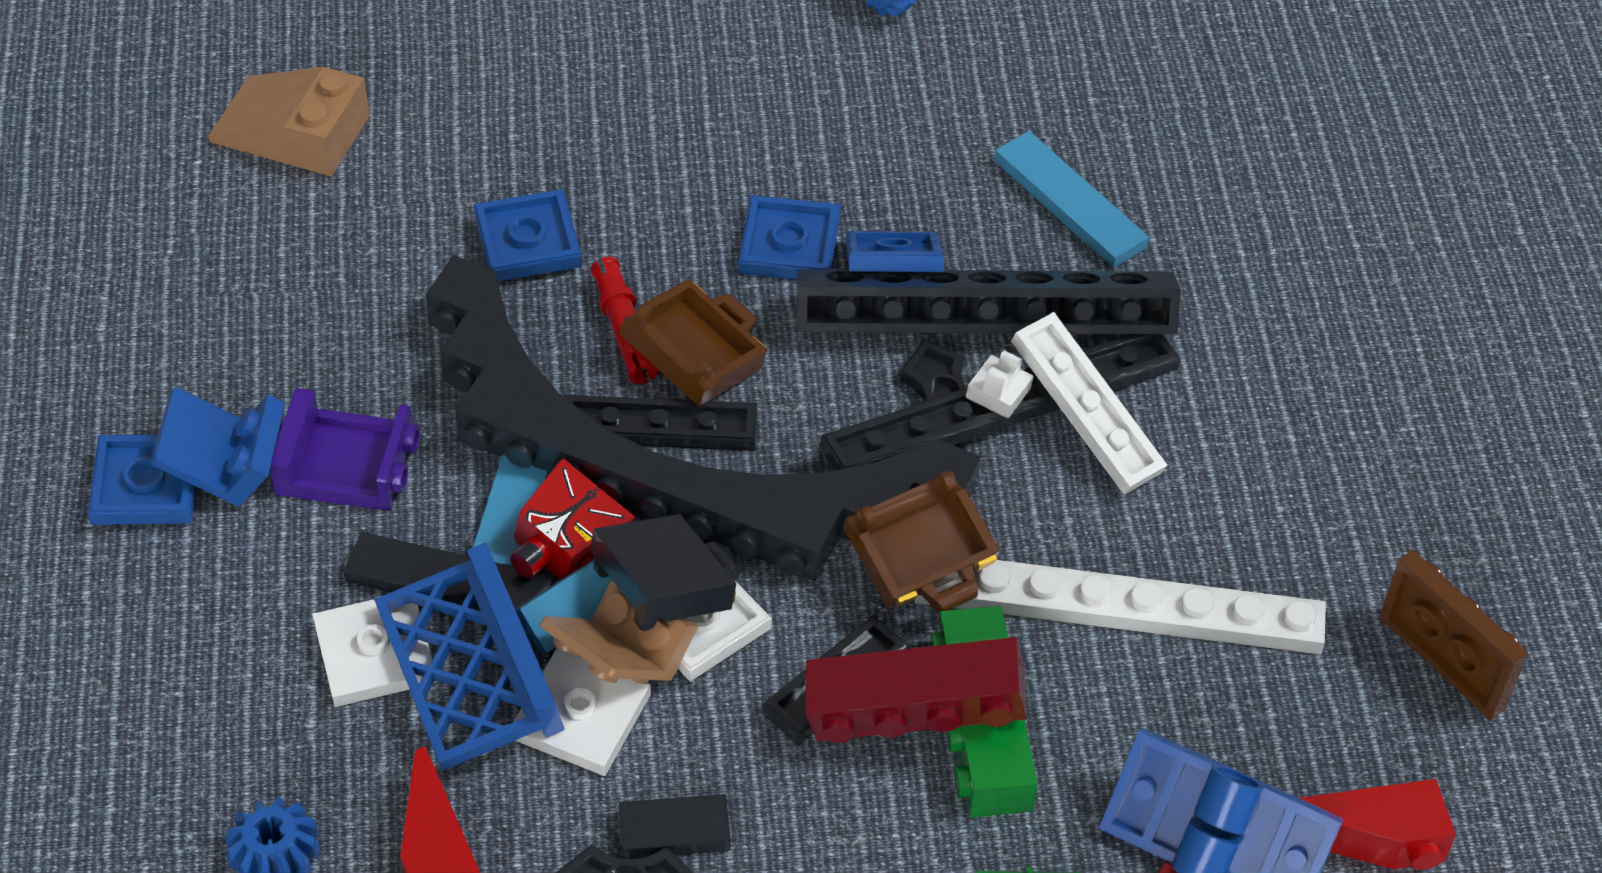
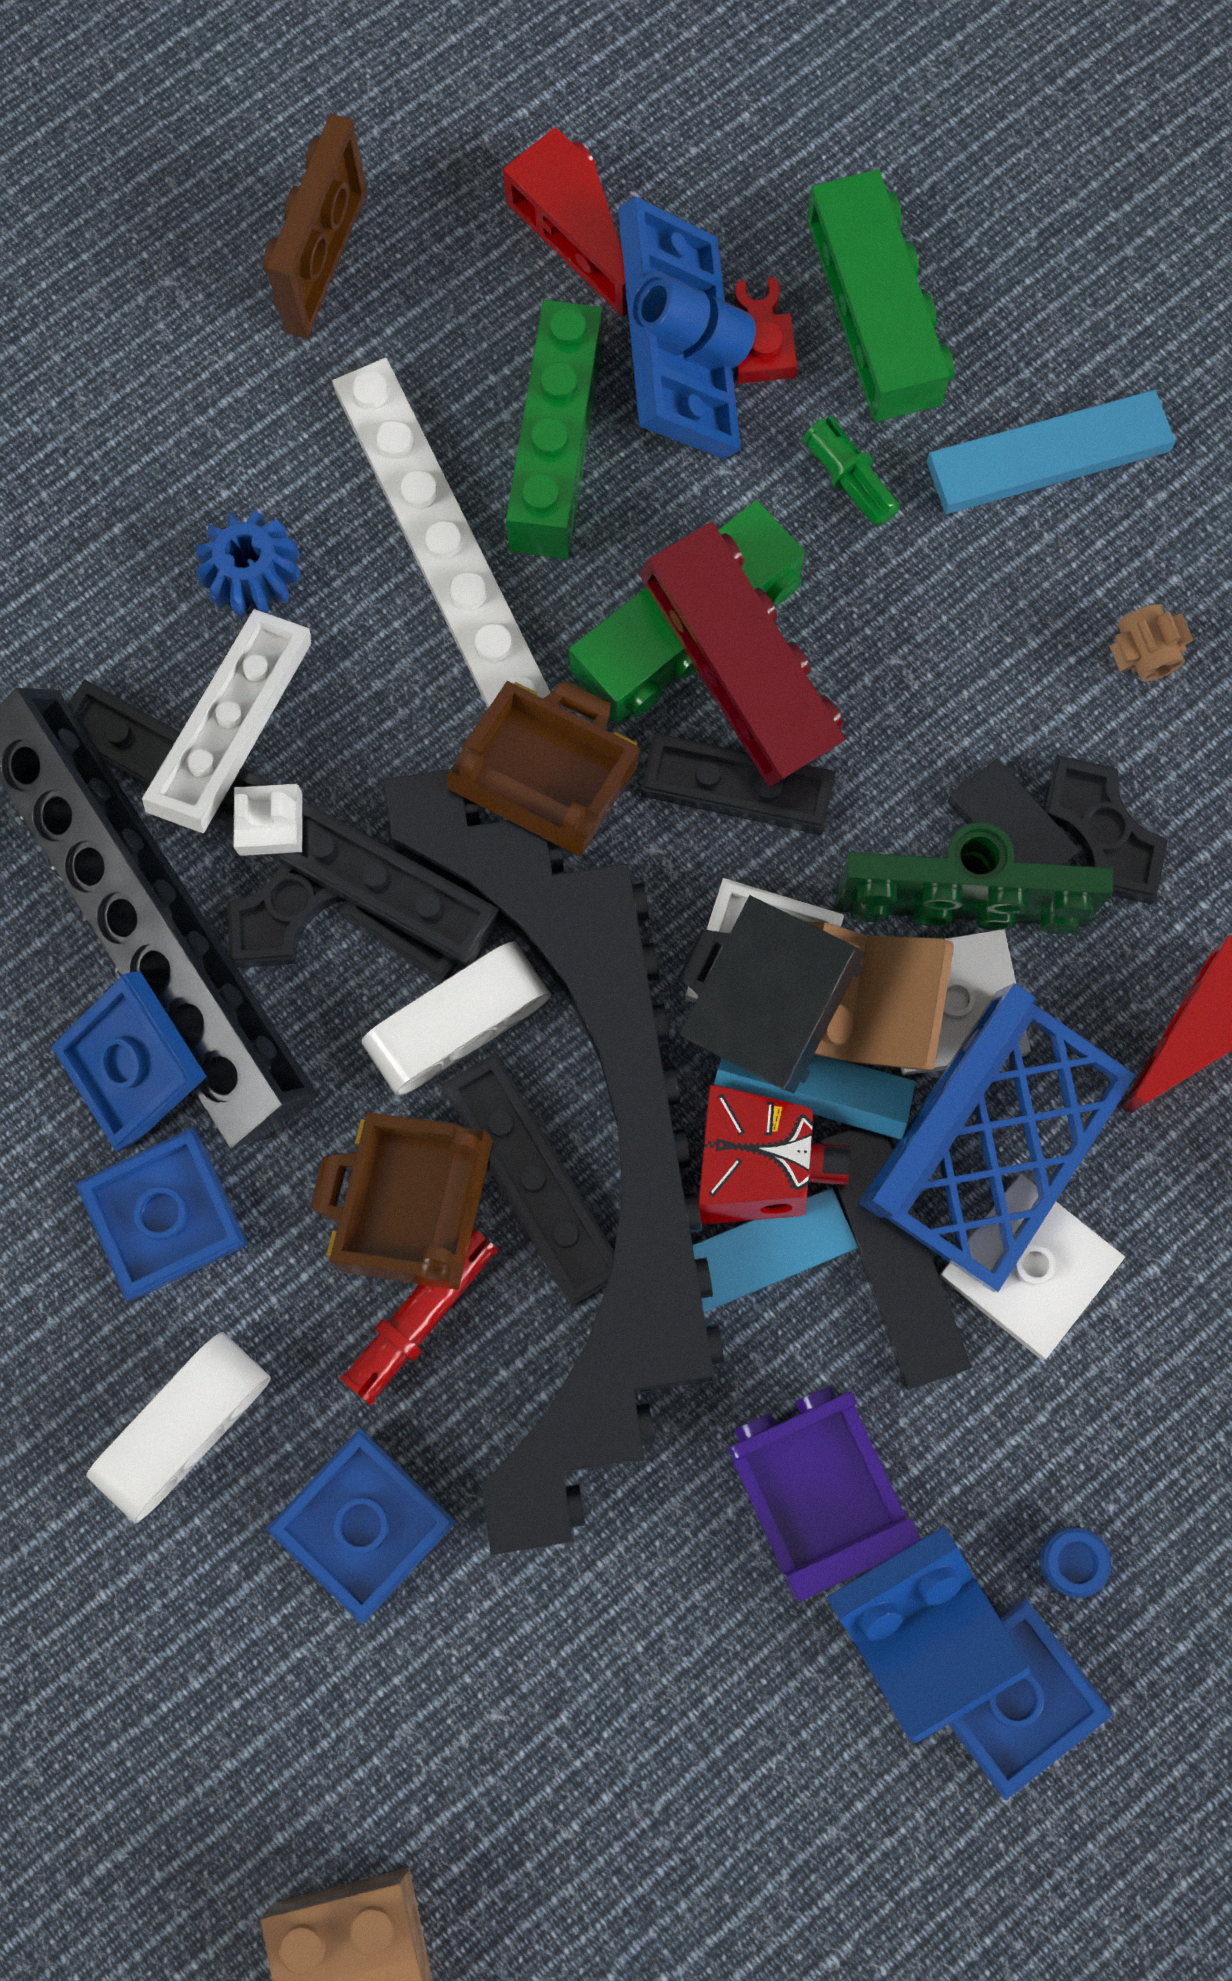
camera: 120 degrees left, 25 degrees up
(185, 562) = (1075, 1562): none -> blue tile
(645, 743) = (972, 883): none -> dark green plate
(655, 182) = (178, 1427): none -> white beam
(792, 421) = (456, 1018): none -> white beam
(1187, 702) = (555, 429): none -> green brick
(1205, 478) = (246, 543): none -> blue gear

